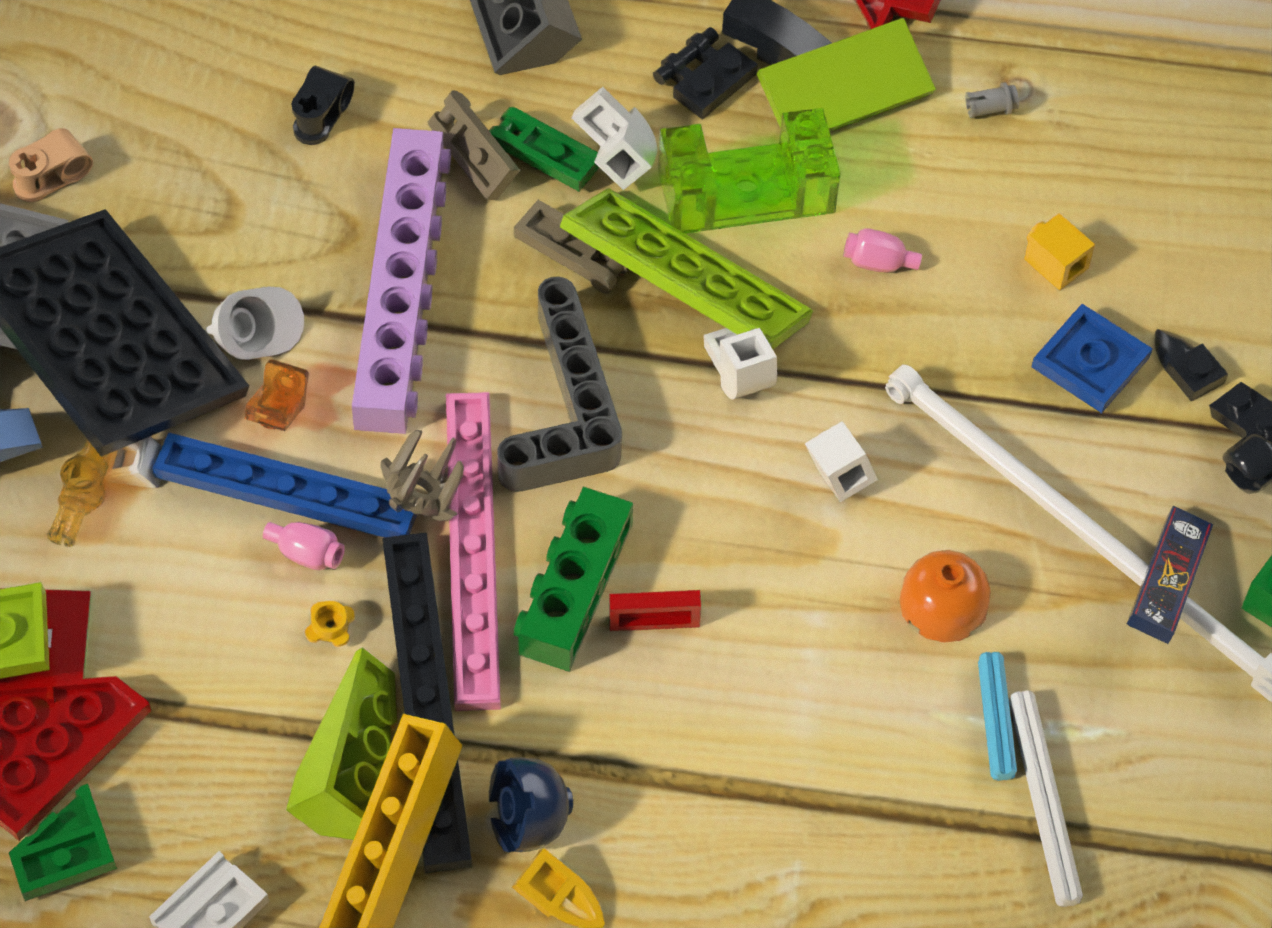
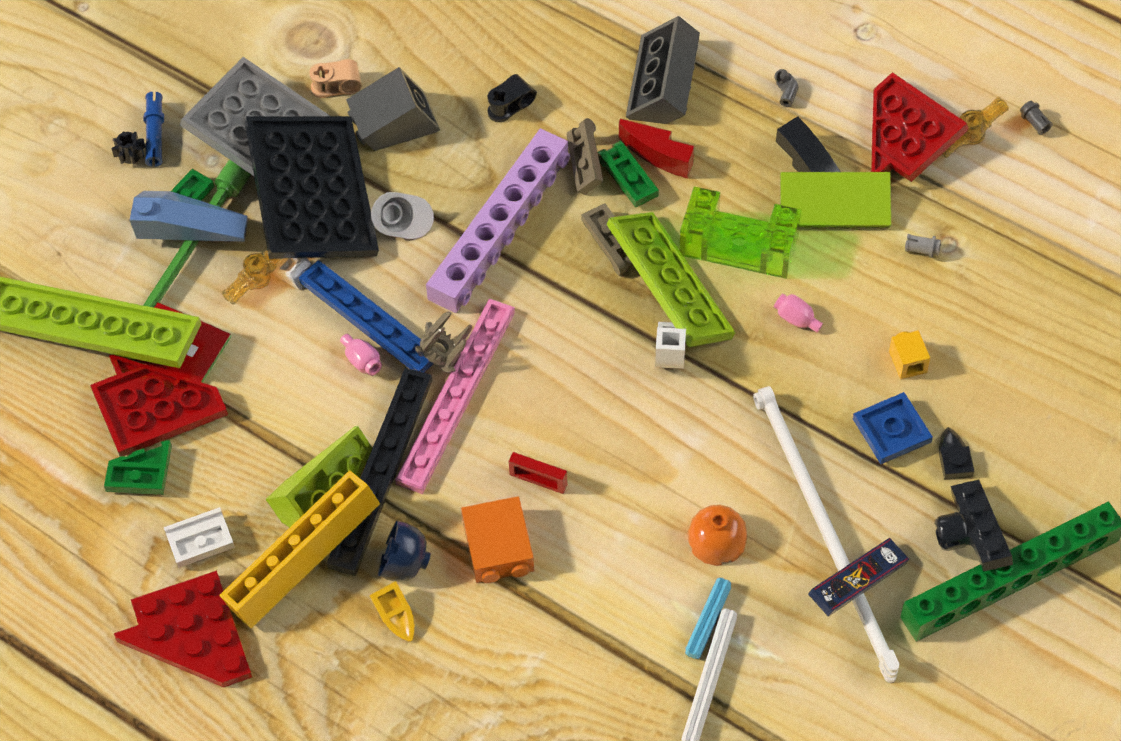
camera: 30 degrees right, 0 degrees up
(159, 183) = (391, 111): none -> dark grey slope
(279, 397) = (392, 264): clear orange bracket -> none
(330, 612) = (351, 398): yellow plate -> none
(554, 93) = (657, 147): none -> red slope
(558, 639) = (476, 467): green brick -> none
(579, 391) = (566, 328): dark grey beam -> none
(623, 136) = (674, 180): white brick -> none
(651, 729) = (497, 540): none -> orange brick
(711, 82) = (755, 169): black plate -> none
(835, 454) = (696, 429): white brick -> none

